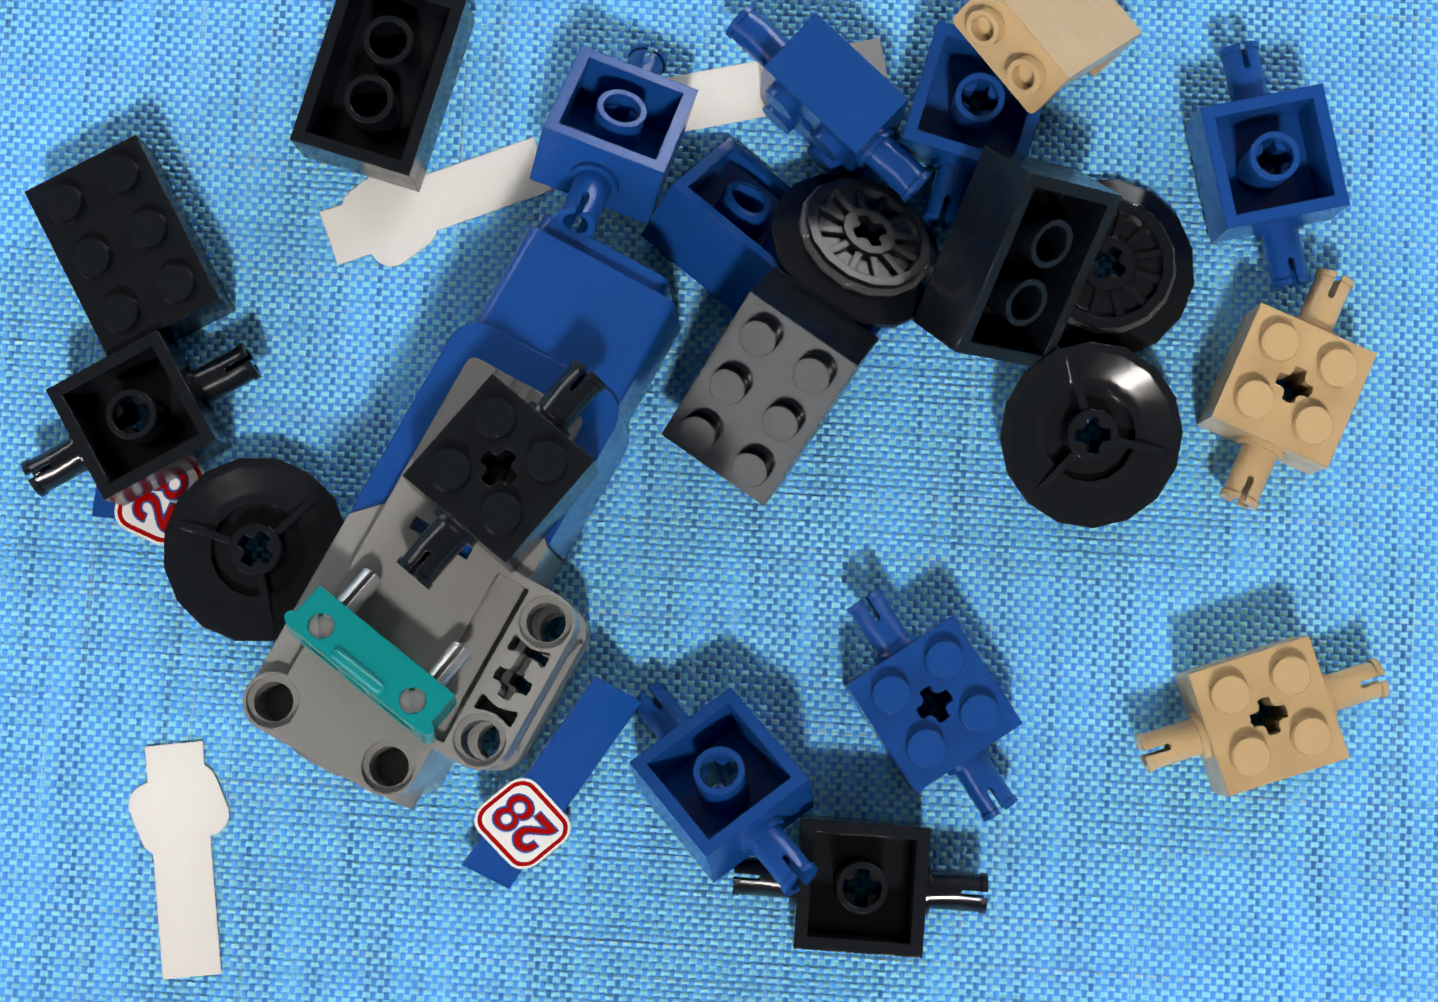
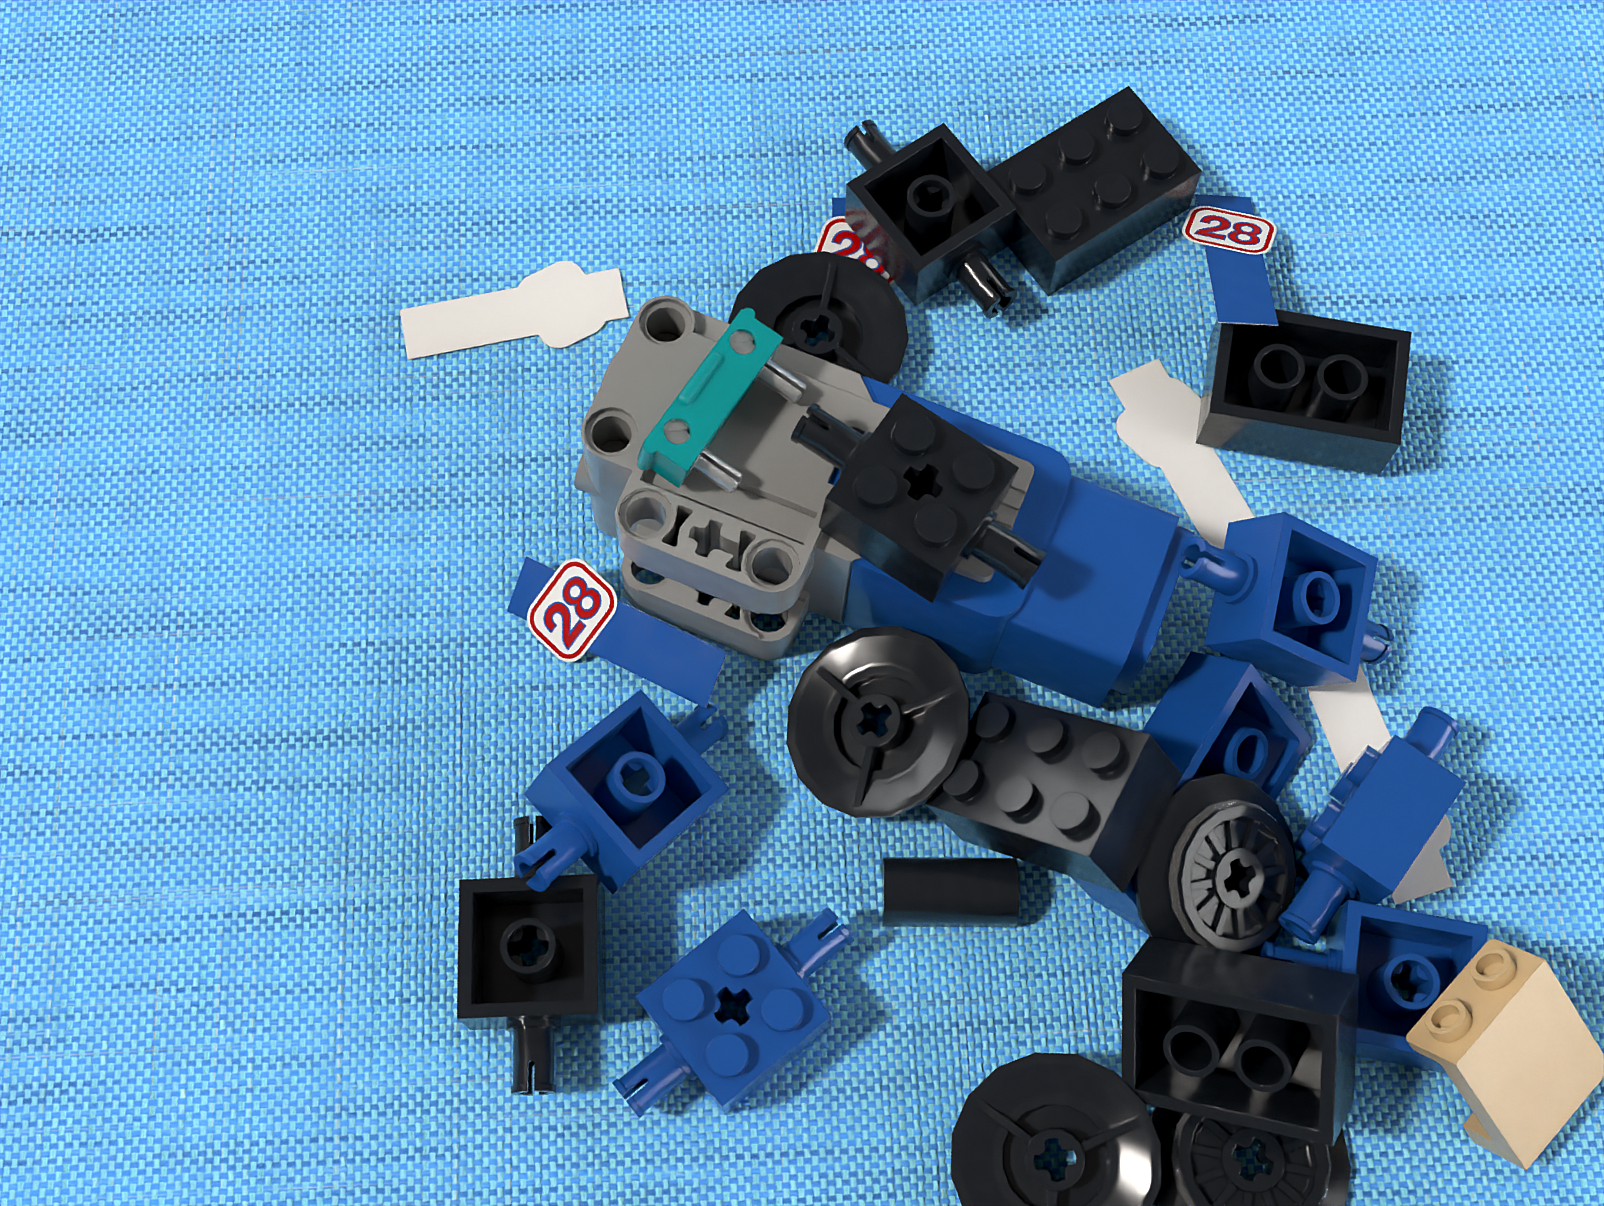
camera: 80 degrees right, 15 degrees down
(211, 114) = (1234, 256): none -> blue sticker
(657, 577) = (836, 721): none -> black piece
(837, 493) = (950, 892): none -> black brick

